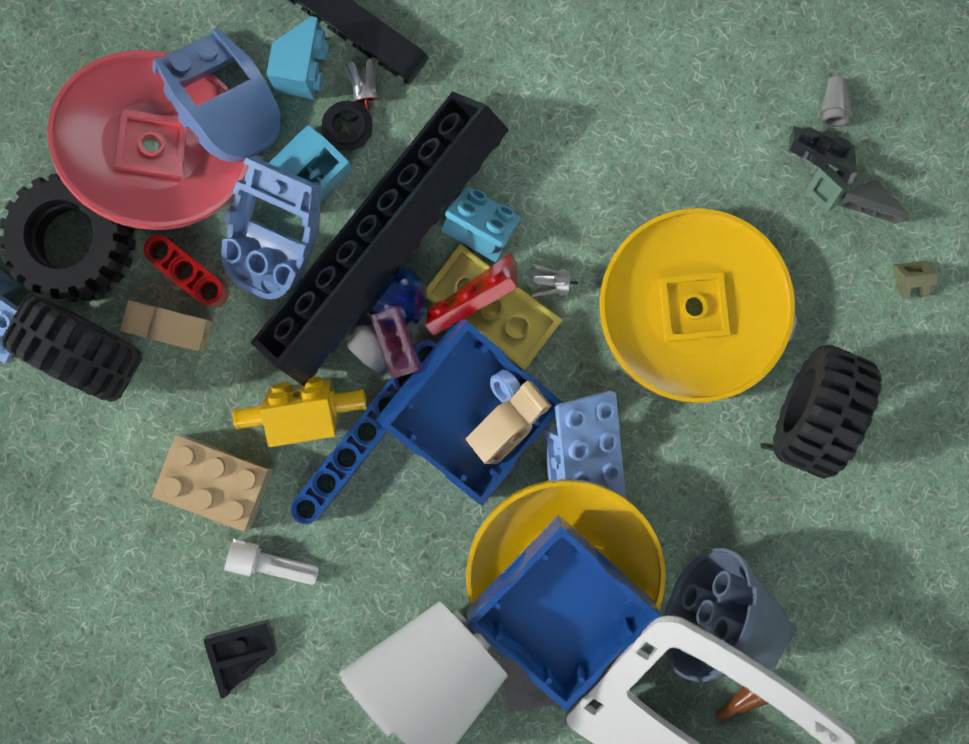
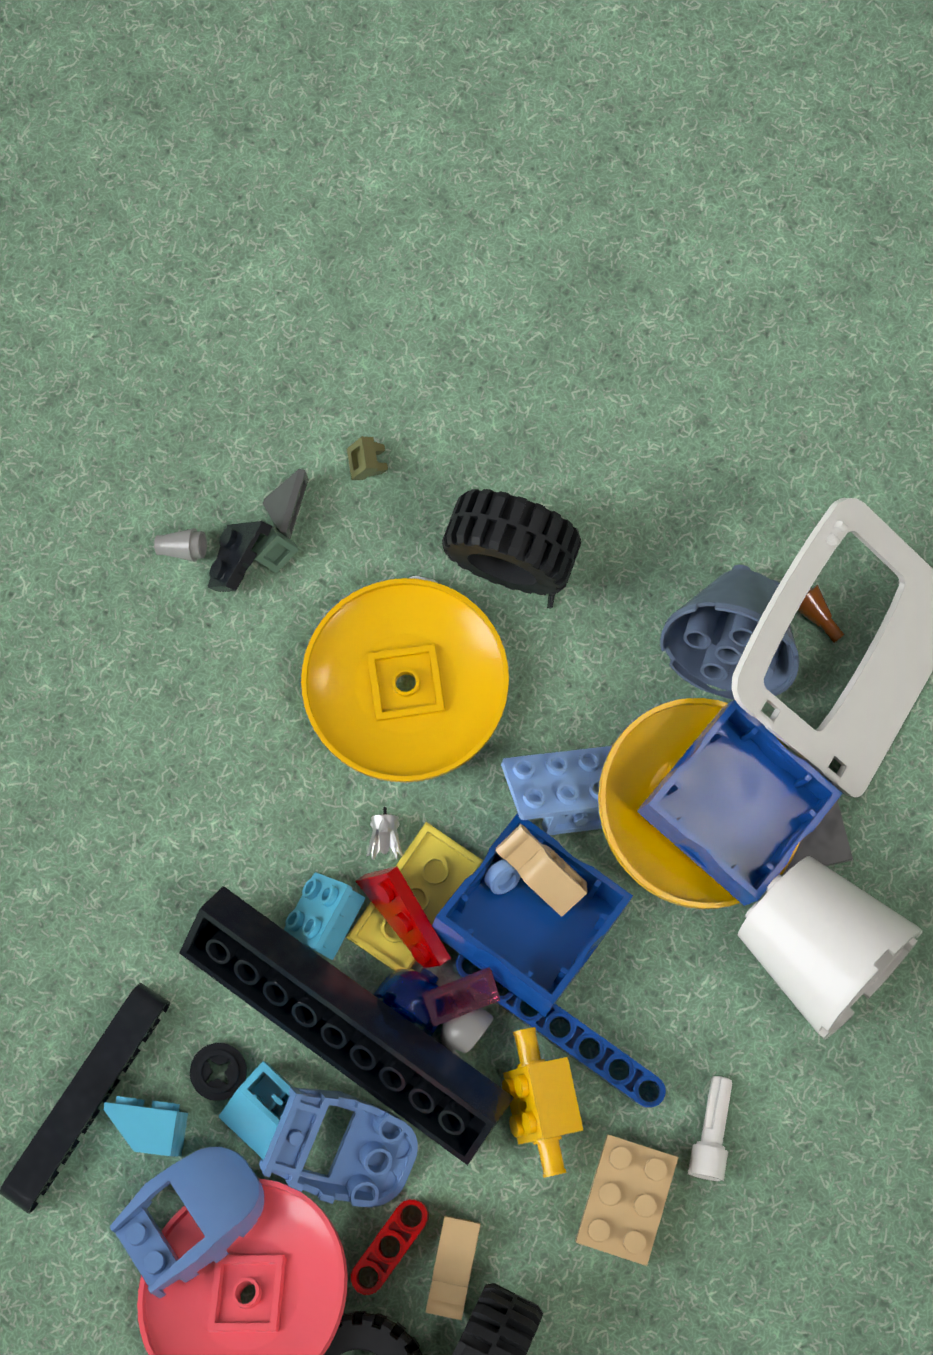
camera: 80 degrees left, 10 degrees down
(238, 653) = (813, 1160): black wing -> none
(363, 82) = (176, 1056): flat silver piece -> none

